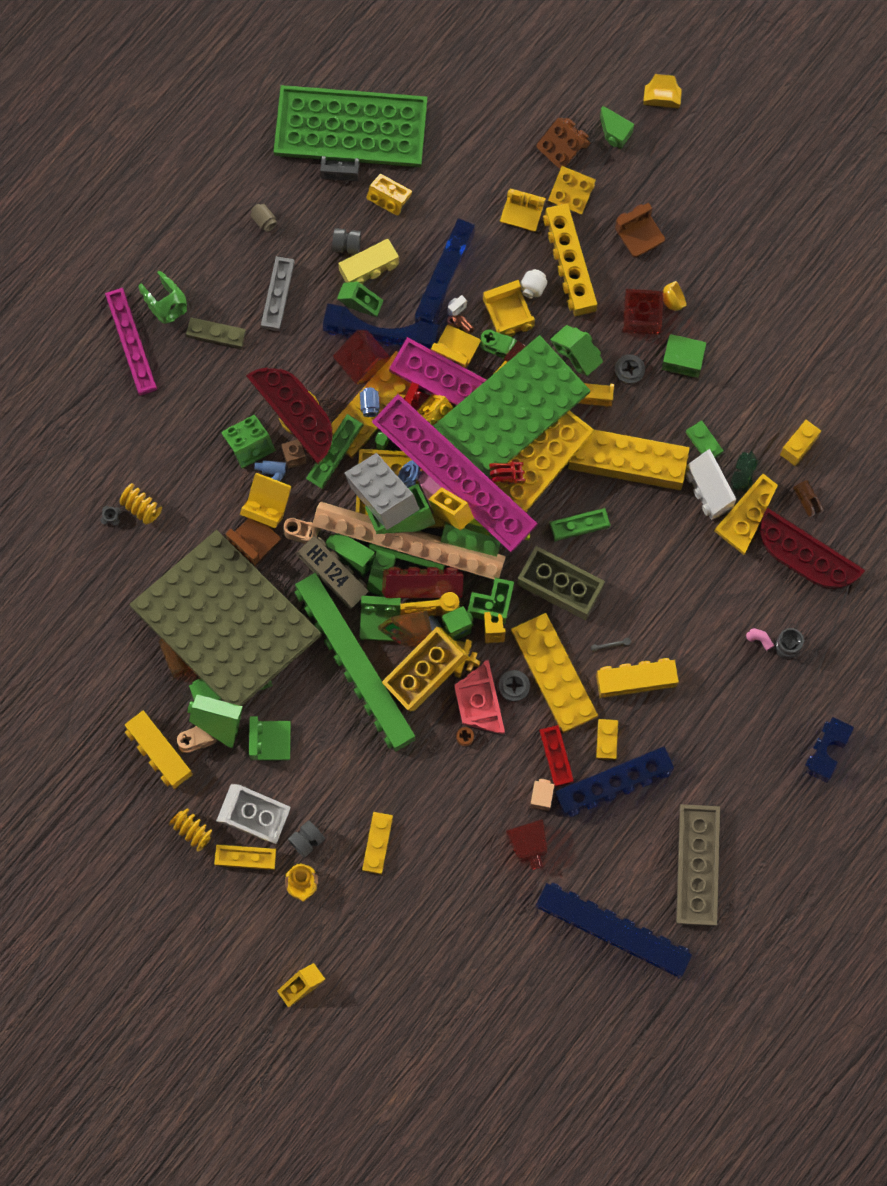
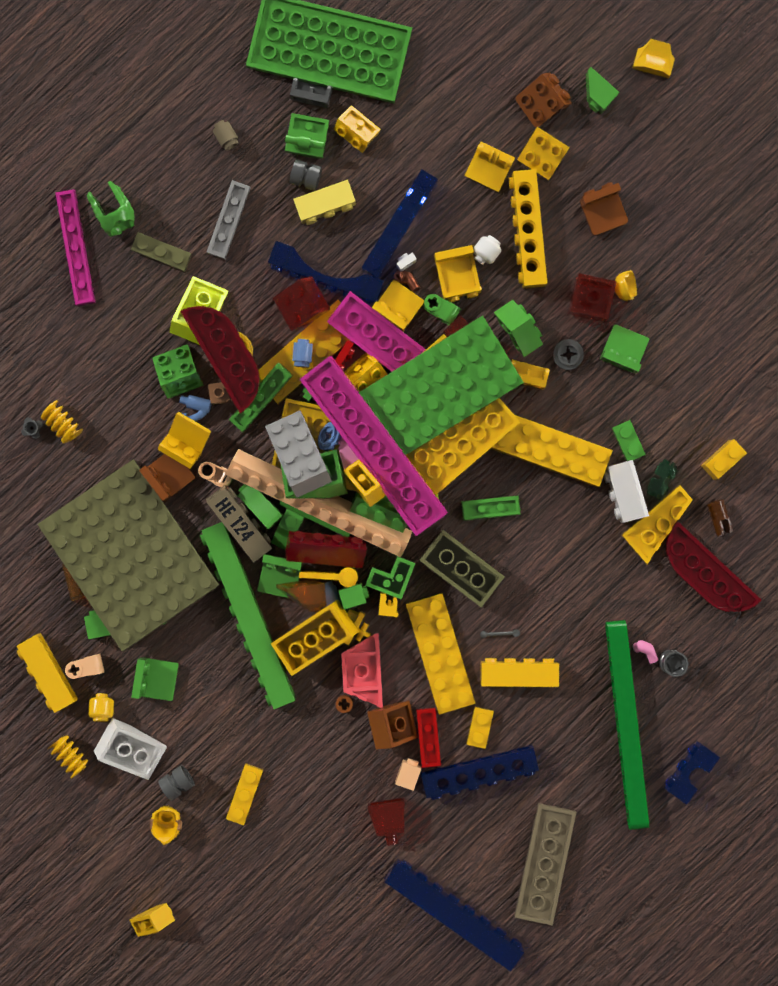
camera: 10 degrees right, 15 degrees up
(216, 718) = (104, 655): bright green slope -> none
(218, 776) = (101, 708): none -> yellow head
(245, 857) = (116, 789): yellow plate -> none
(246, 392) = (197, 294): none -> neon yellow slope
(342, 207) = (306, 136): none -> bright green plate
(360, 298) = (310, 238): bright green slope -> none
(506, 472) = (428, 454): red arm -> none
(517, 748) = (392, 725): none -> dark orange slope
(520, 679) = (405, 668): dark grey gear -> none
(755, 714) = (627, 724): none -> green beam

